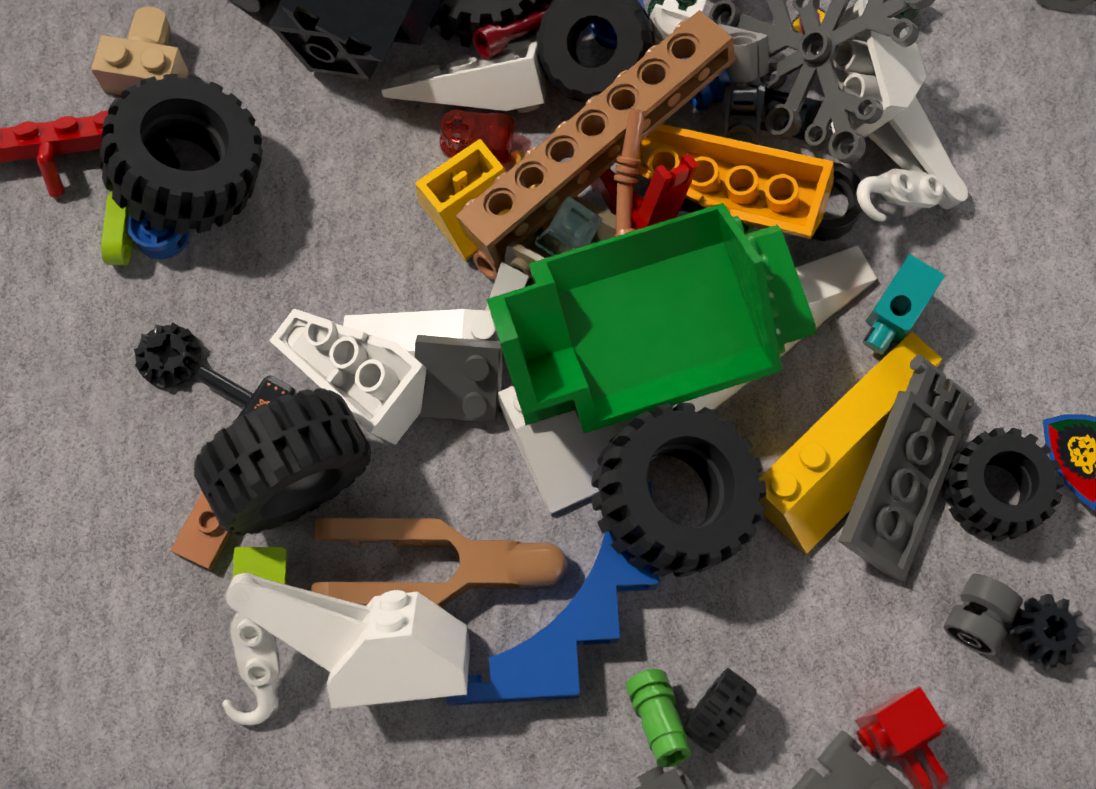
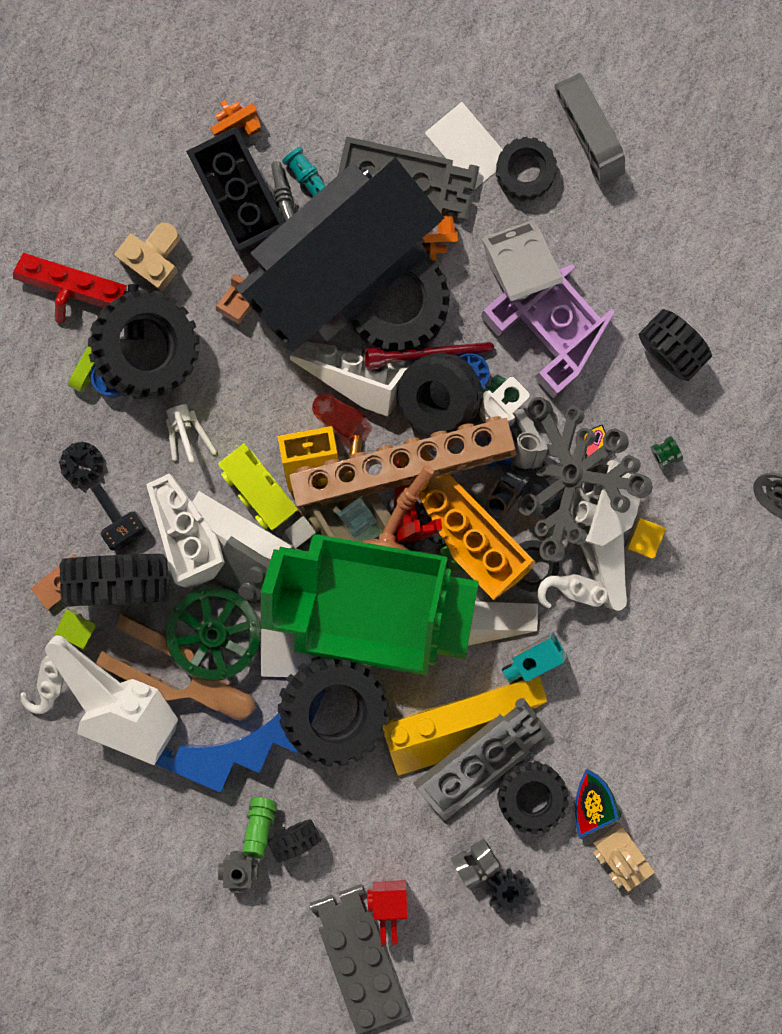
camera: 30 degrees right, 15 degrees up
(278, 64) = (232, 303): none -> nougat bracket
(279, 237) = (180, 418): none -> white plant
(417, 266) = (257, 488): none -> neon yellow wedge
(456, 477) = (215, 626): none -> dark green wheel
(944, 96) = (645, 538): none -> yellow panel

